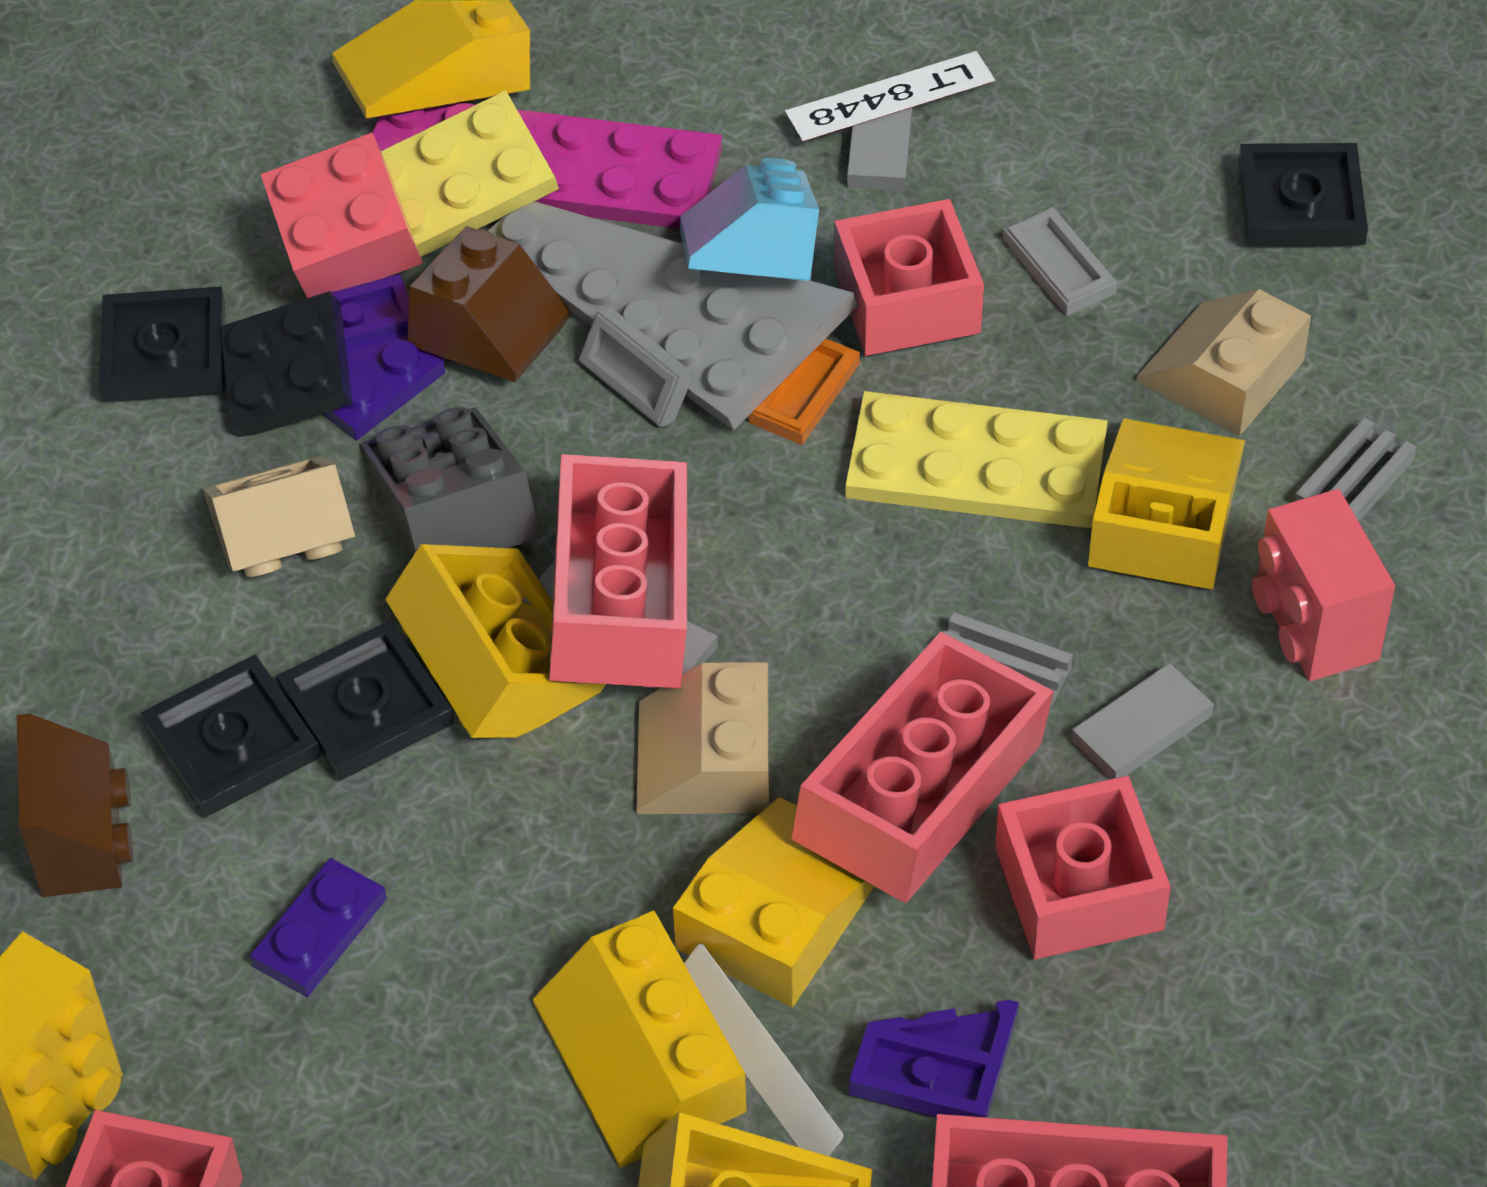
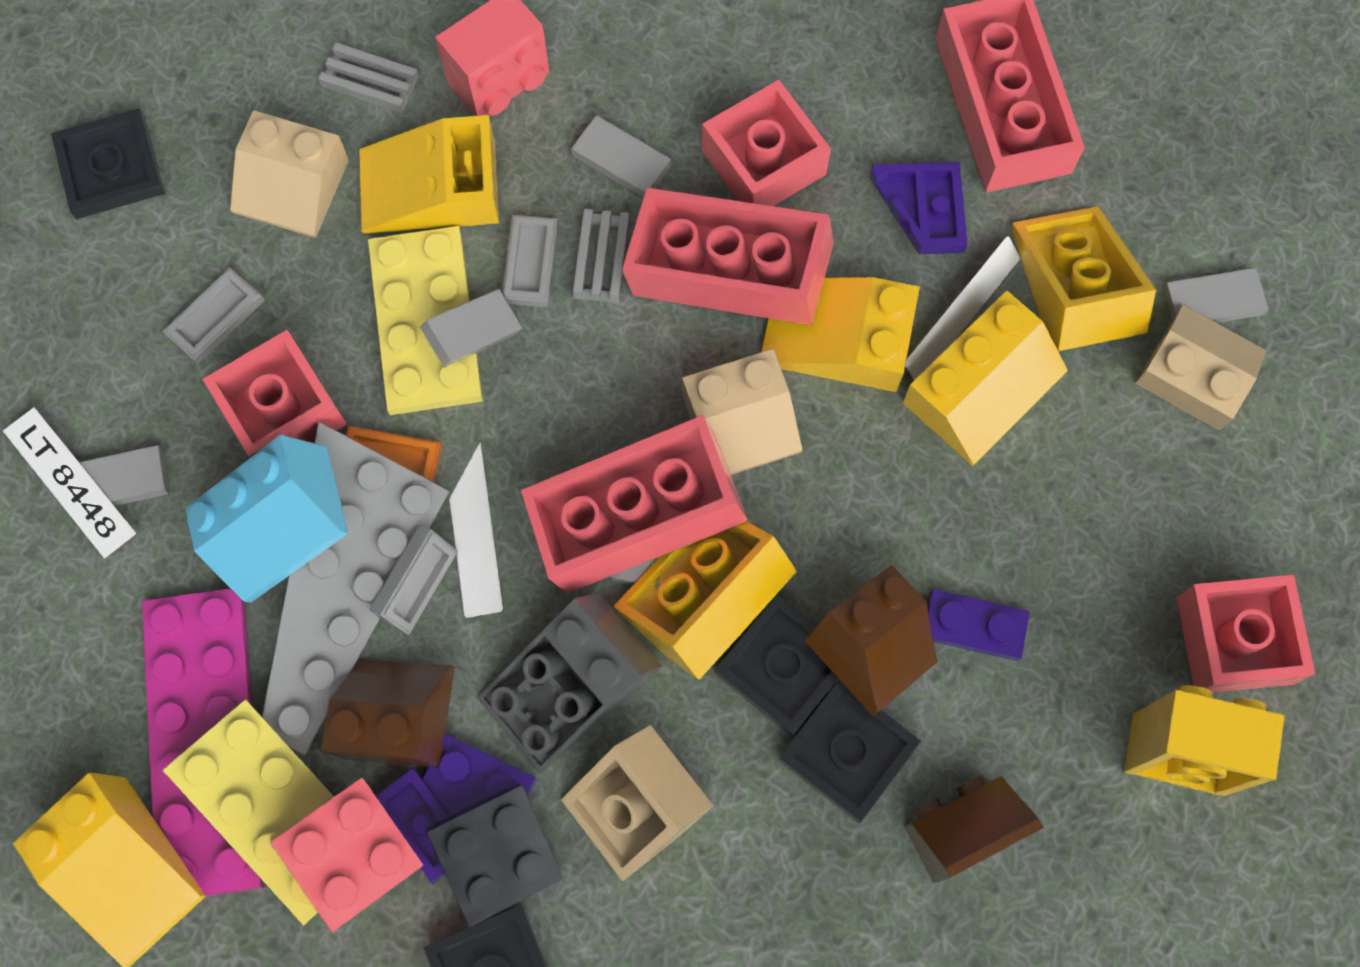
camera: 110 degrees left, 20 degrees up
(338, 783) = (877, 640): none -> reddish brown slope
(699, 450) = (475, 541): none -> white sticker
(934, 483) = (471, 328): none -> light grey tile
(1021, 586) = (530, 260): none -> light grey tile

